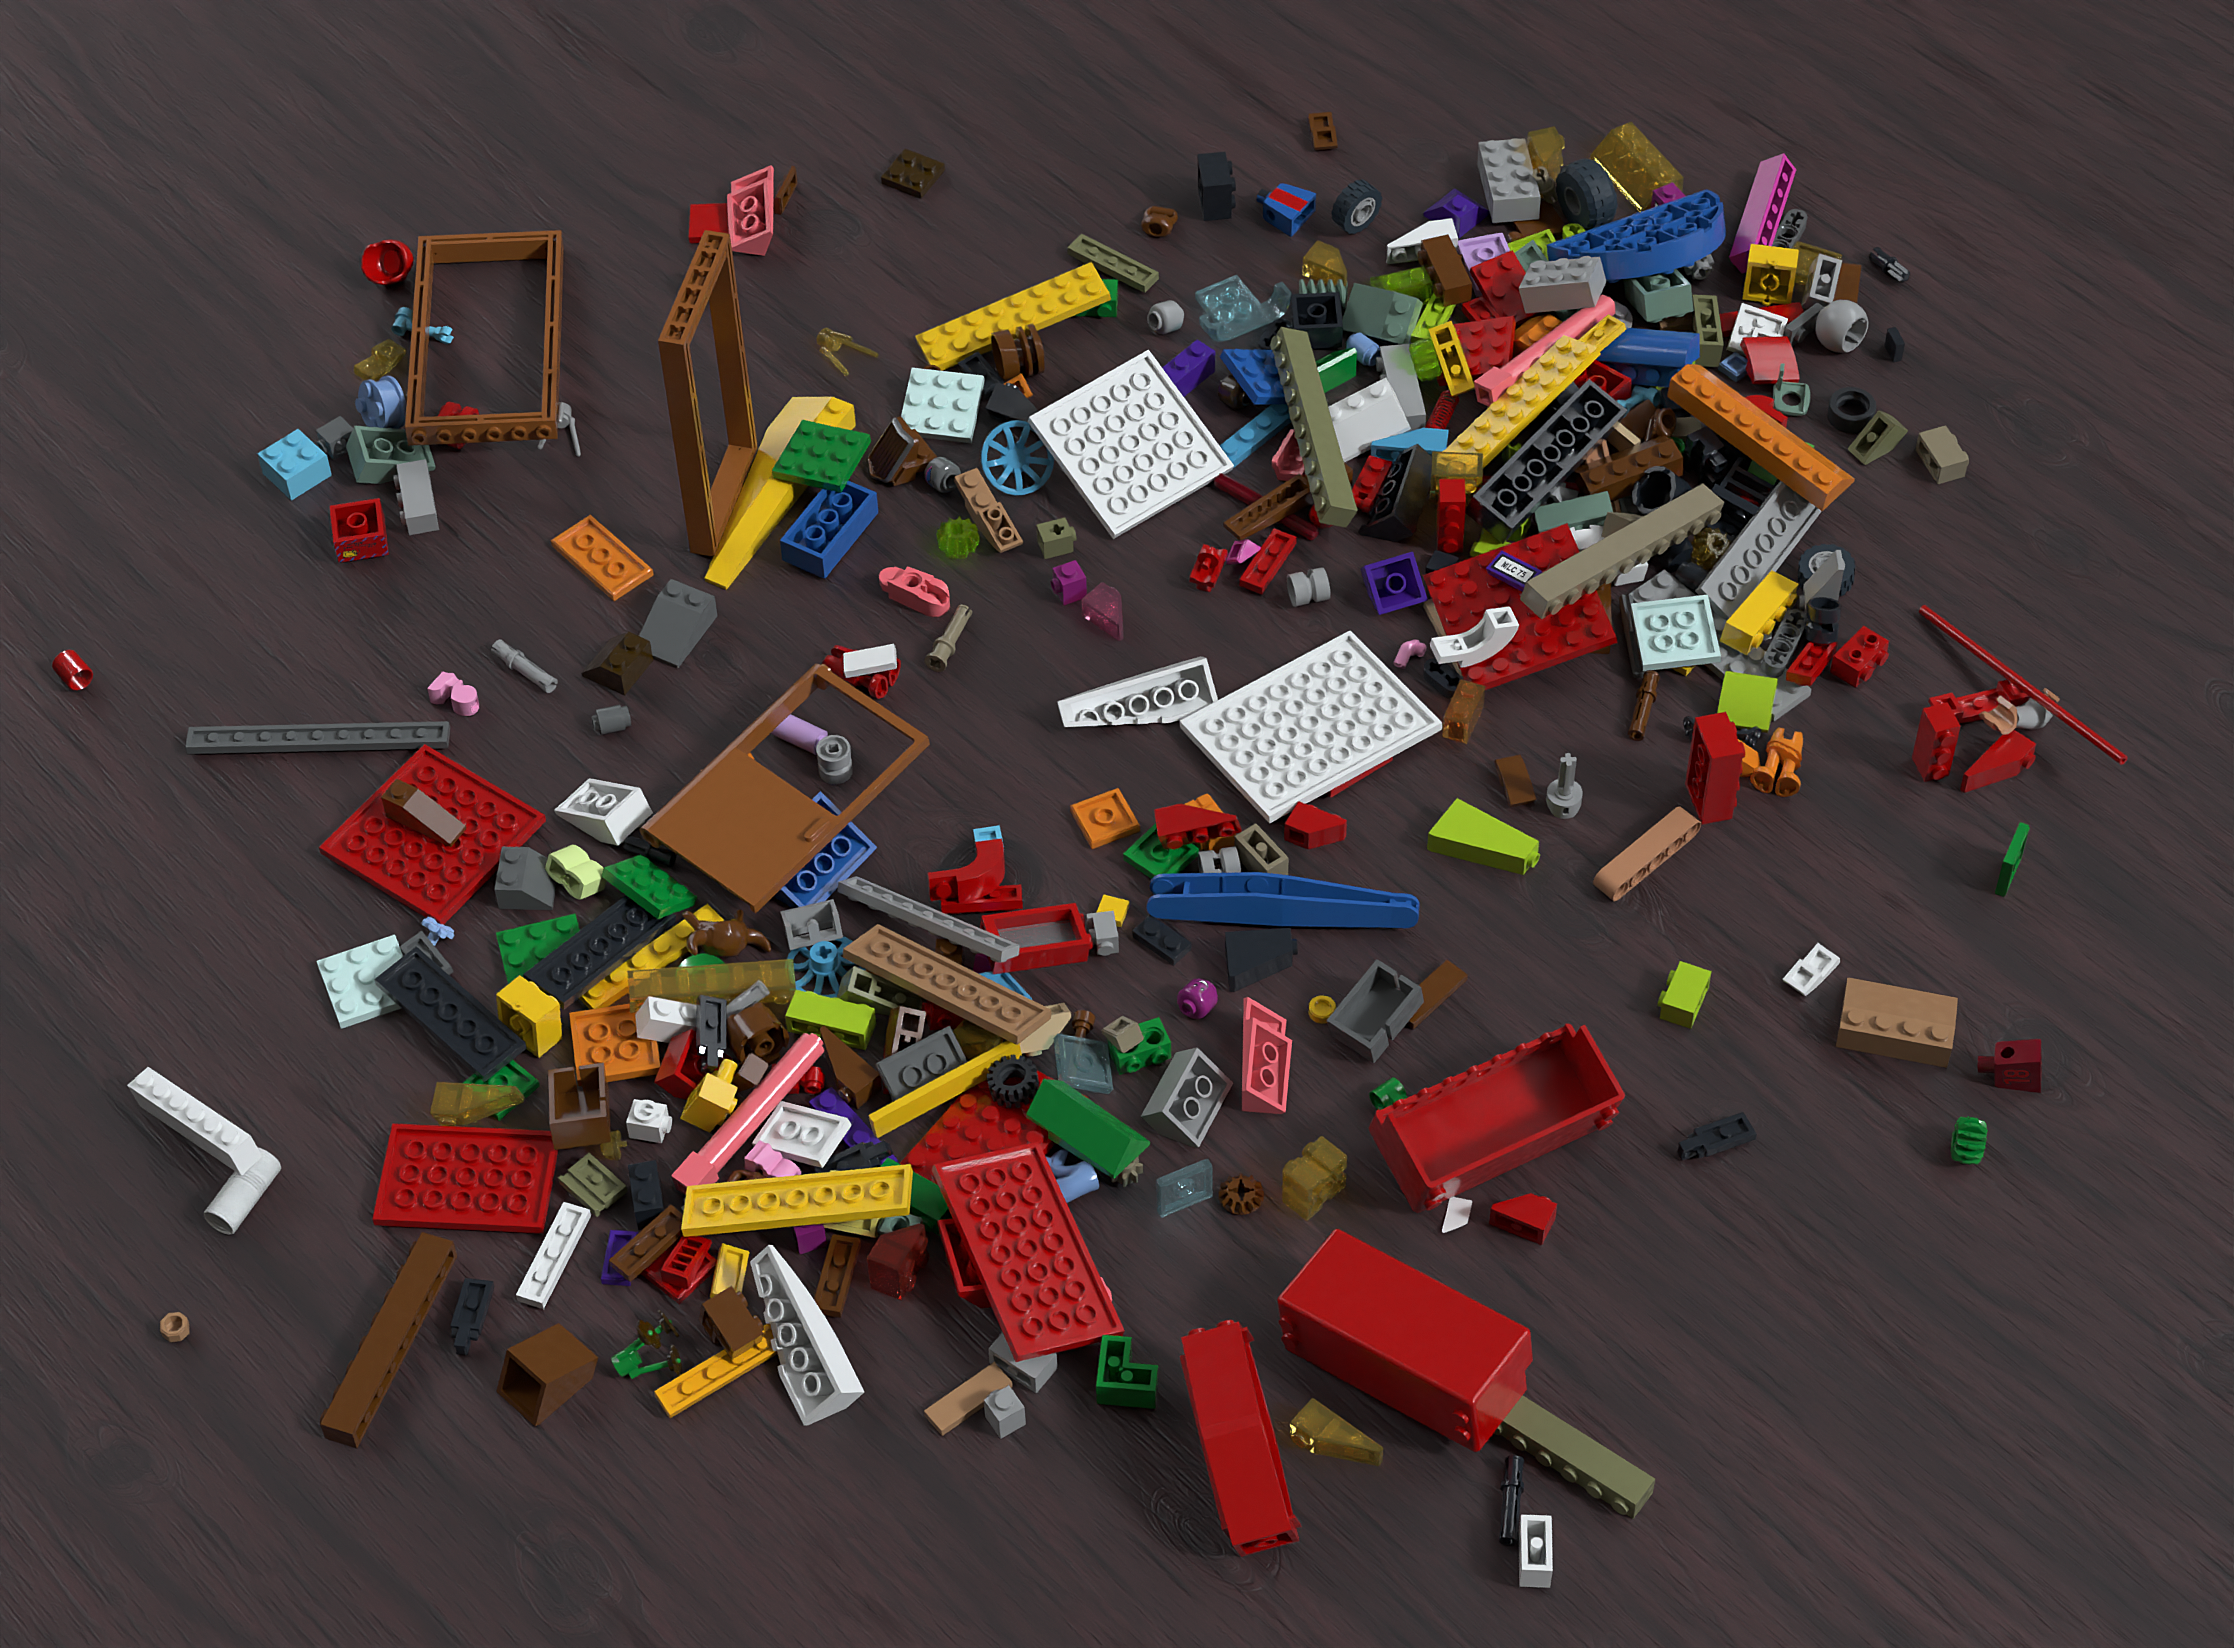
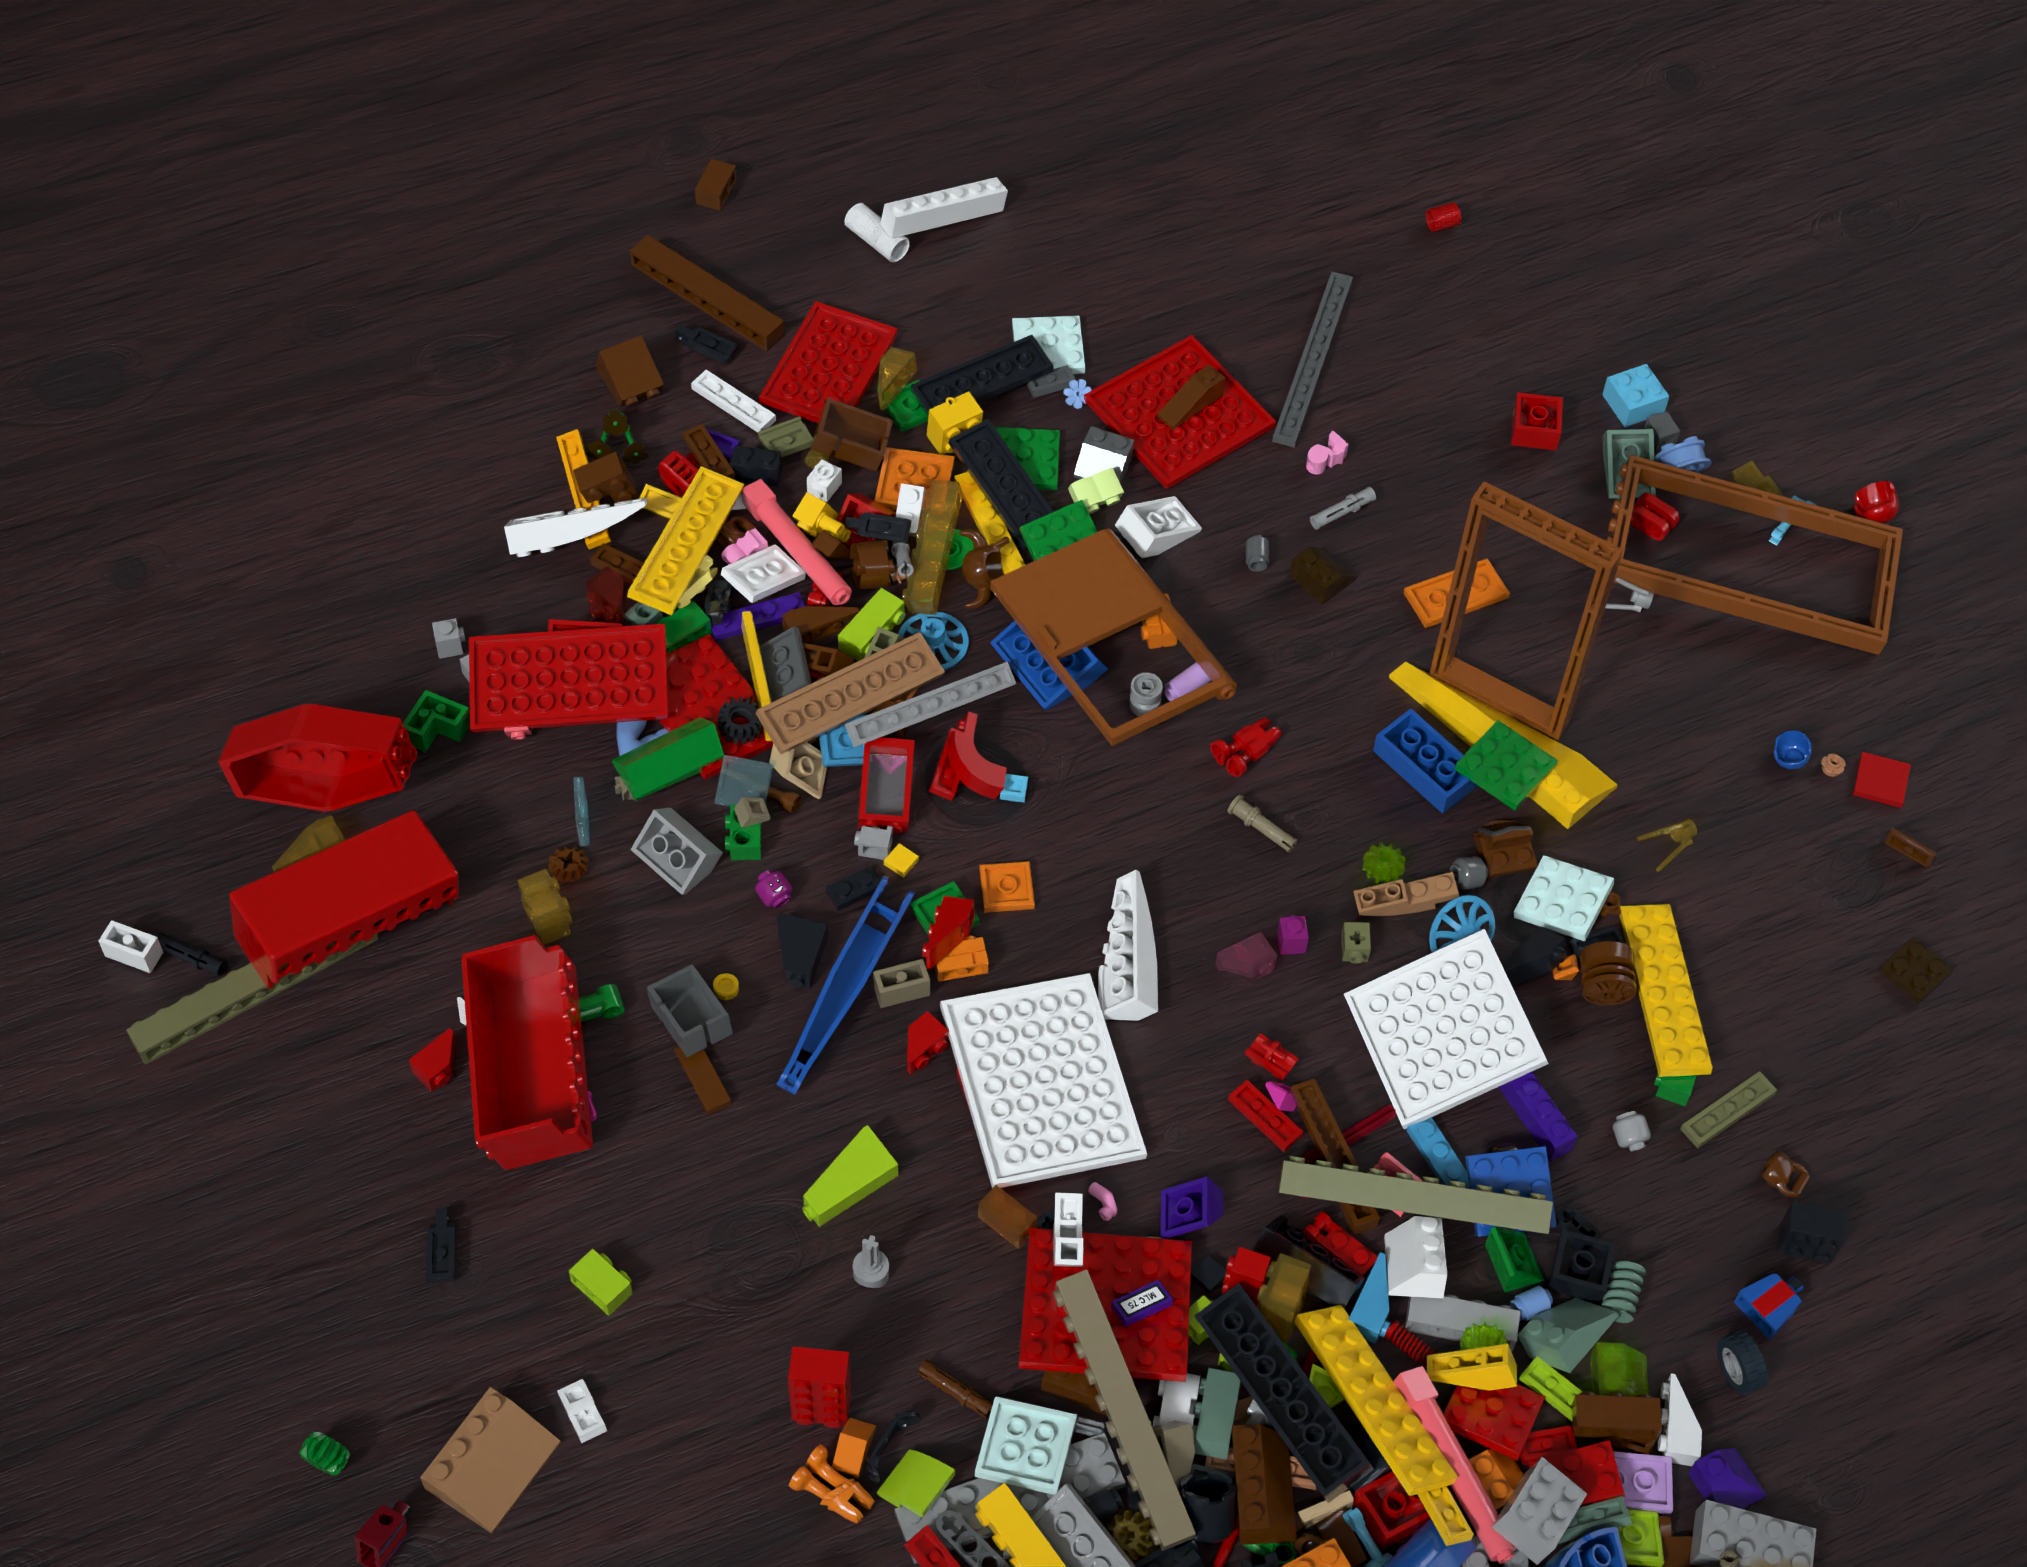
camera: 105 degrees right, 5 degrees up
(174, 1327) = (780, 180): medium nougat tile -> none
(202, 1387) = (715, 184): none -> reddish brown panel
(416, 497) = (1569, 473): light grey brick -> none
(678, 622) = (1353, 624): dark grey slope -> none
(751, 212) = (1880, 807): coral slope -> none
(810, 920) = (983, 623): light grey window -> none
(870, 661) = (1240, 741): white tile -> none
(916, 590) = (1341, 799): coral piece -> none
(966, 1399) = (474, 615): medium nougat tile -> none
(1226, 857) = (907, 945): light grey wheel -> none
(1237, 309) = (1624, 1200): clear light blue piece -> none
(1264, 1060) = (690, 916): coral slope -> none
(1307, 587) = (1214, 1135): light grey wheel -> none
(1322, 131) = (1891, 1388): reddish brown slope -> none
(1324, 263) = (1669, 1312): clear yellow slope -> none
(1516, 780) = (911, 1234): reddish brown slope -> none
(1646, 853) = (770, 1309): nougat beam -> none

